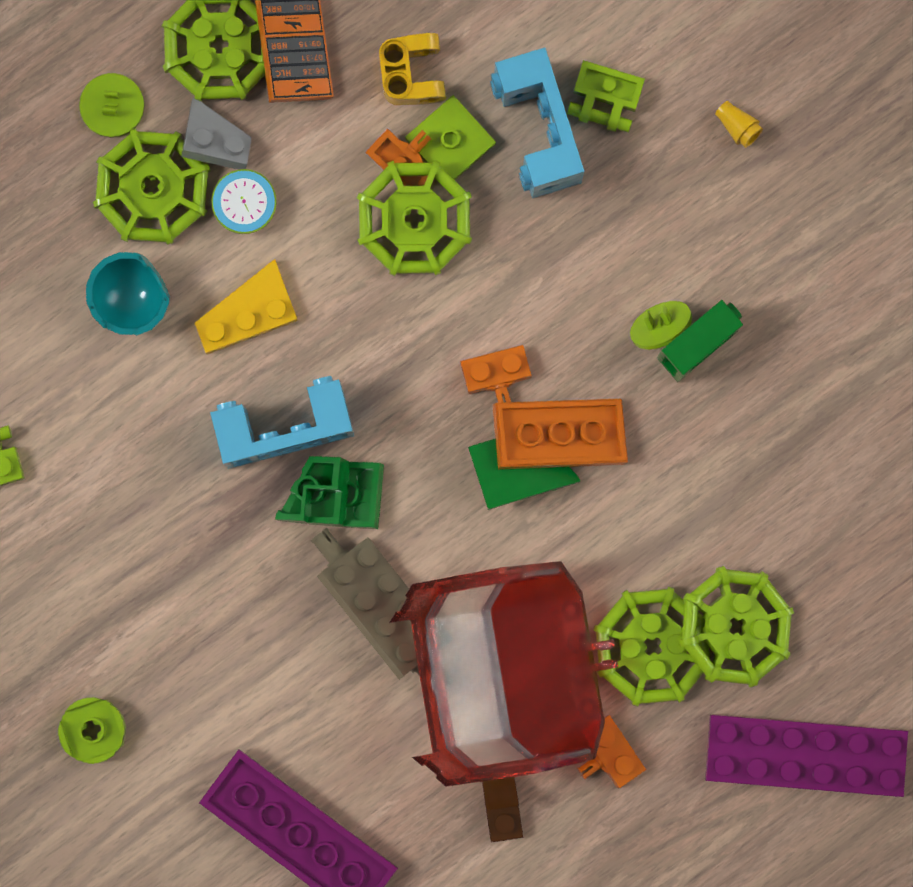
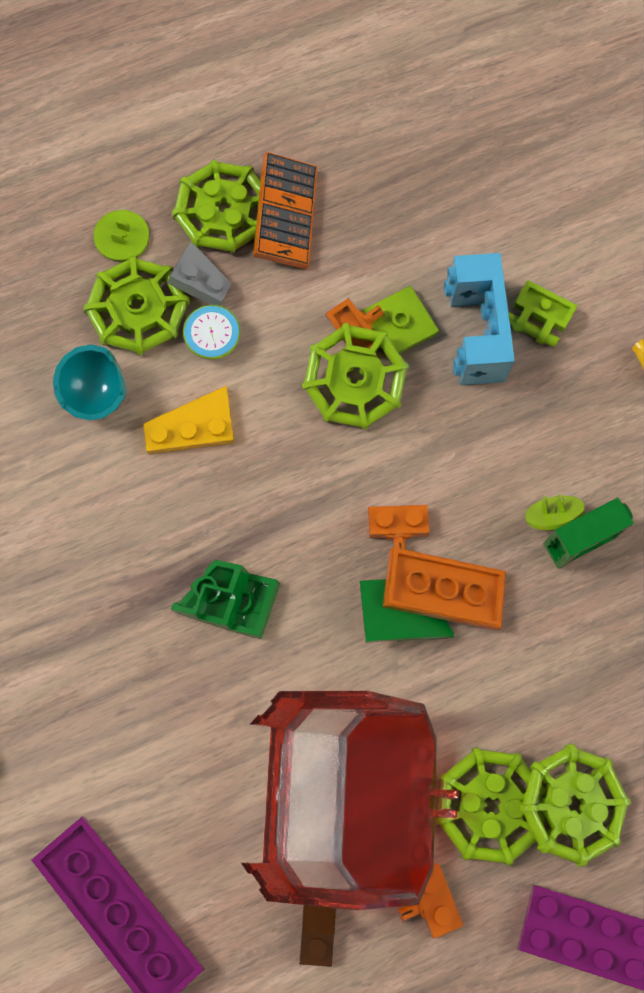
camera: 10 degrees right, 10 degrees down
(237, 438) = (154, 536): medium azure plate -> none
(370, 596) = (238, 694): dark tan plate -> none
(410, 46) = (383, 239): yellow piece -> none

